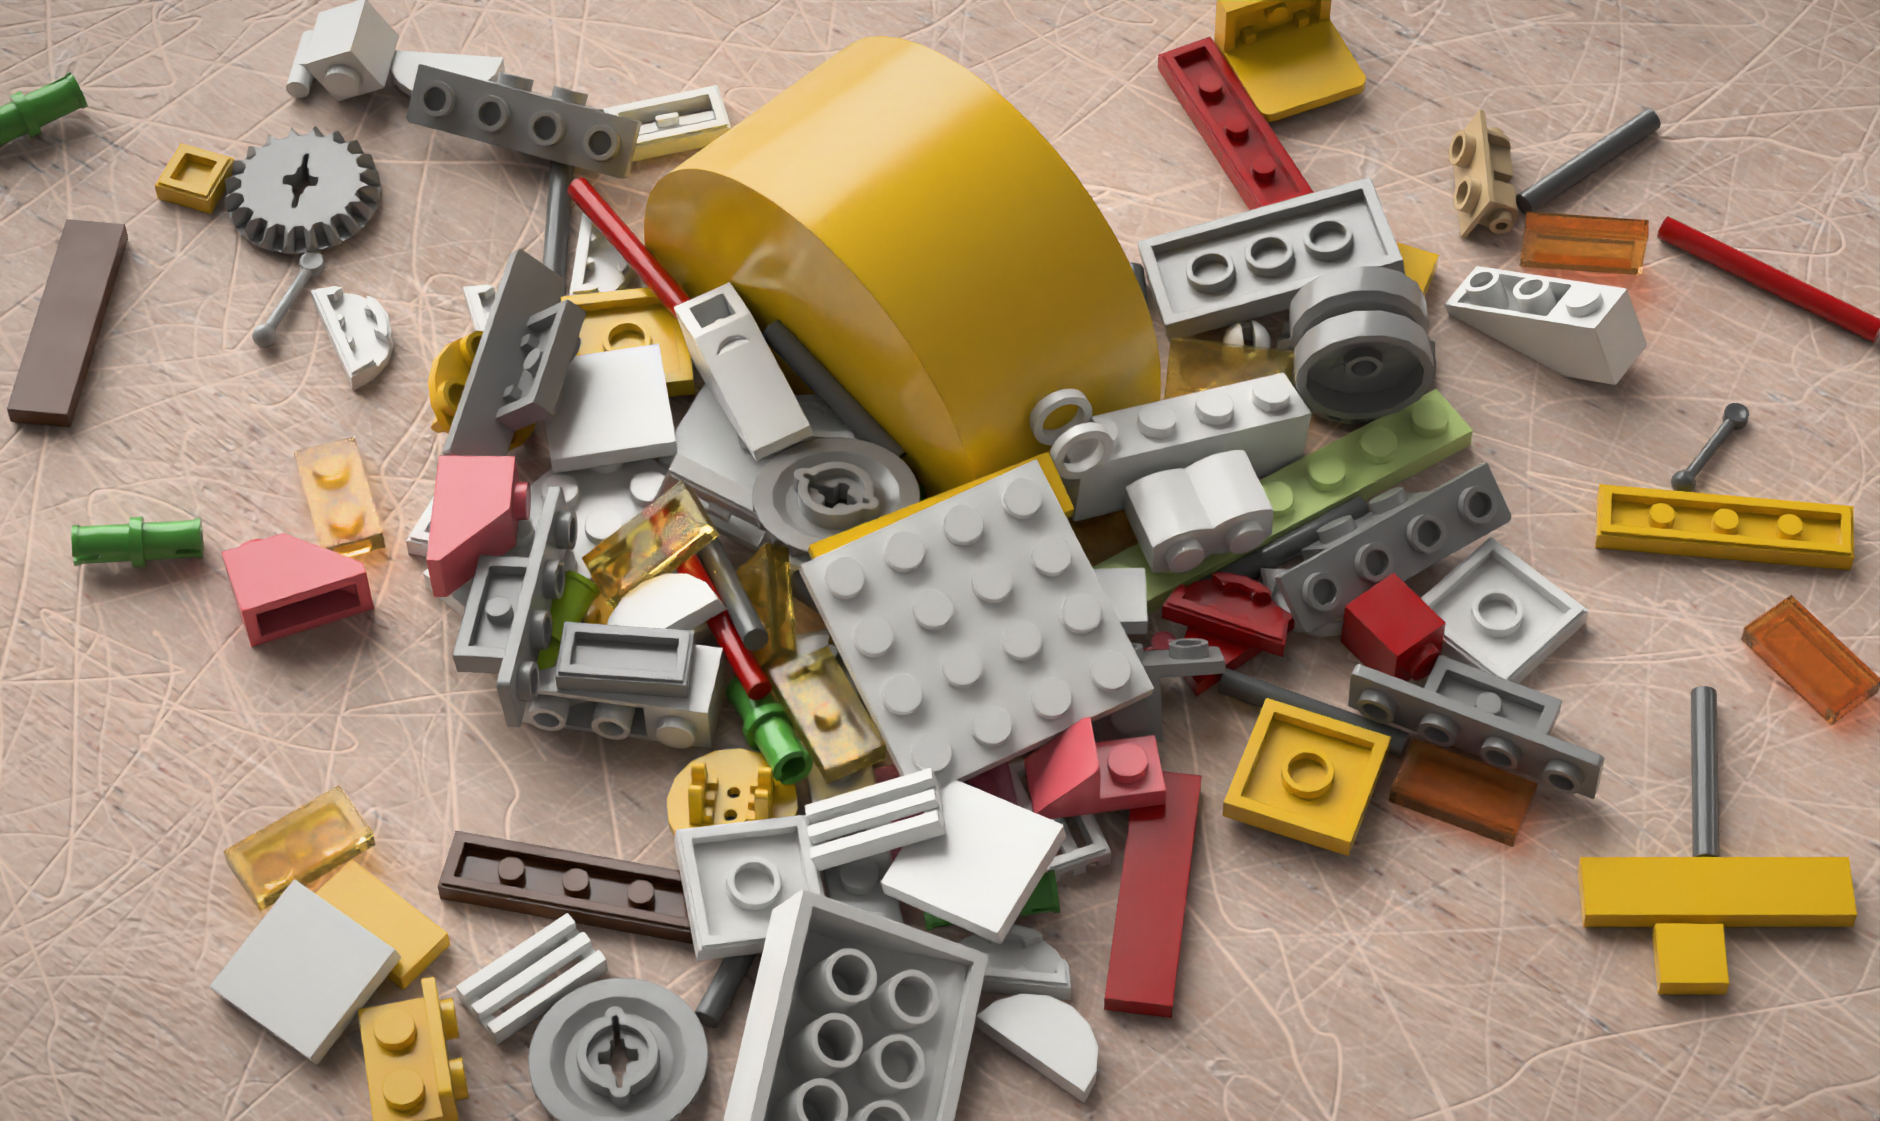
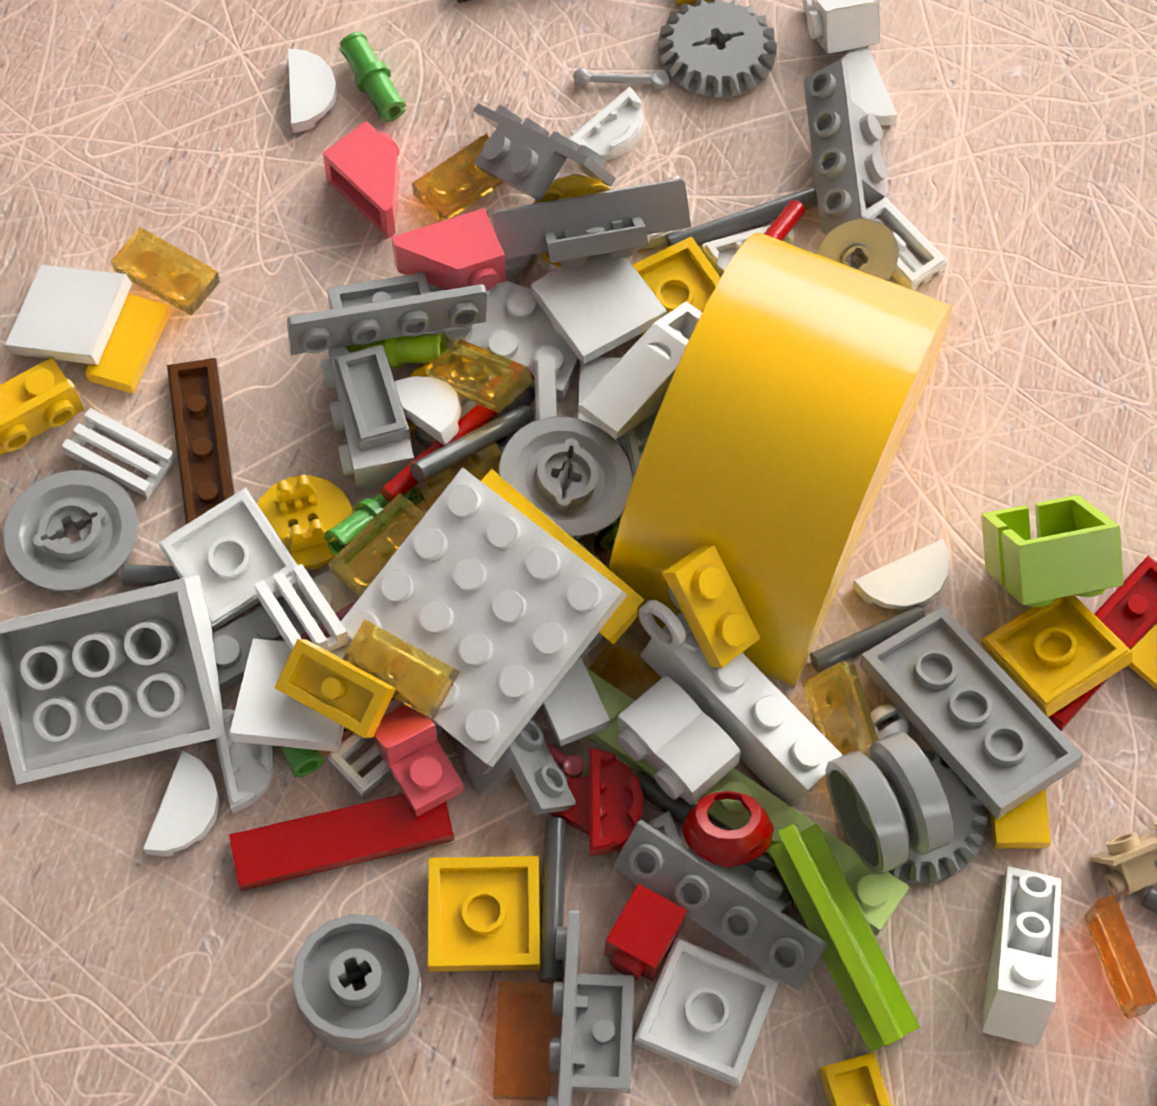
camera: 65 degrees right, 10 degrees up
(108, 616) = (311, 89): none -> white tile
(383, 400) = (529, 158): none -> light grey bracket
(667, 142) = (875, 240): none -> piece
(1004, 792) = (335, 688): none -> yellow plate
(1008, 725) = (417, 676): none -> clear yellow plate
(1090, 387) = (711, 605): none -> yellow plate
(1131, 113) = (1072, 555): none -> lime piece
(1233, 161) = (1057, 652): none -> yellow tile
(1328, 520) = (728, 847): none -> red piece
(1348, 912) = (350, 952): none -> light grey wheel
(1526, 441) = (852, 949): none -> lime fence

